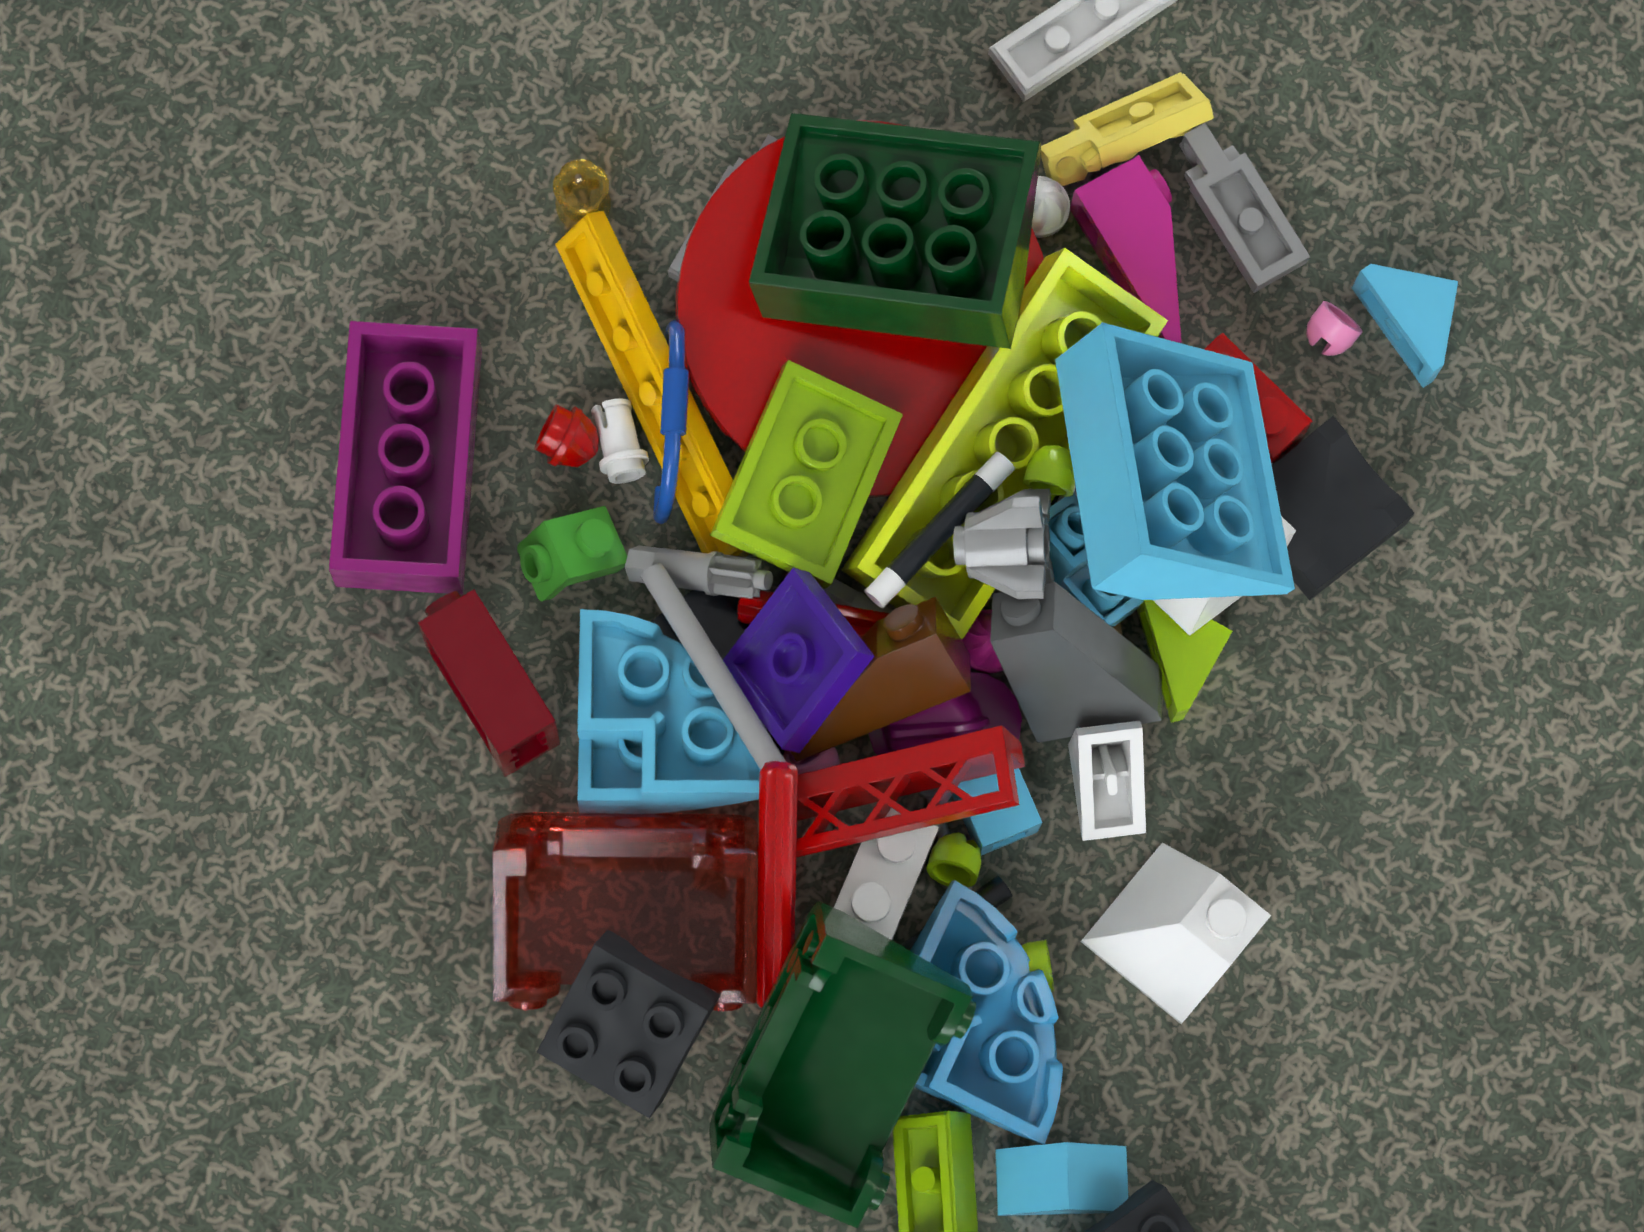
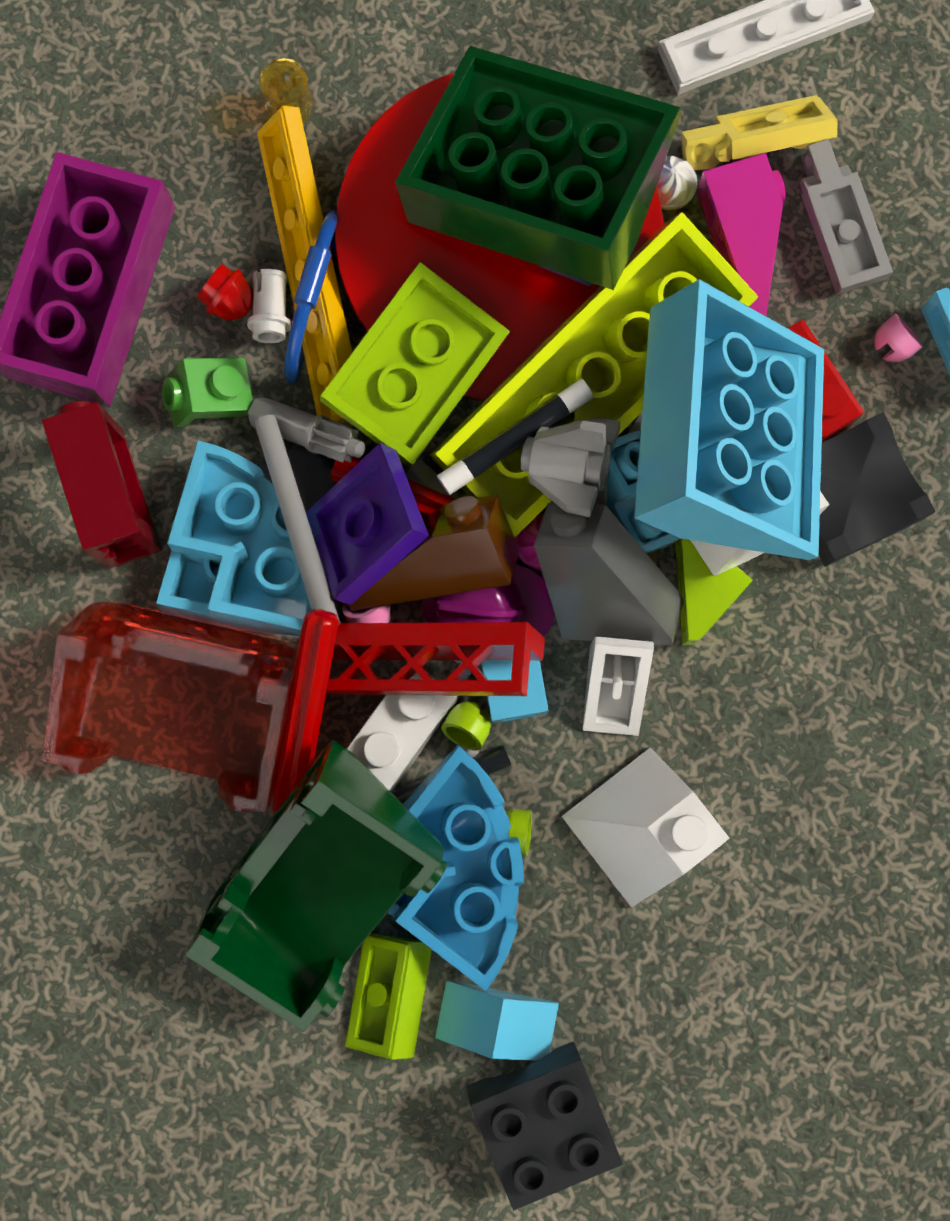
camera: 20 degrees right, 5 degrees up
(627, 1024) = (151, 805): black brick -> none
(1052, 470) = (625, 405): lime hinge -> none

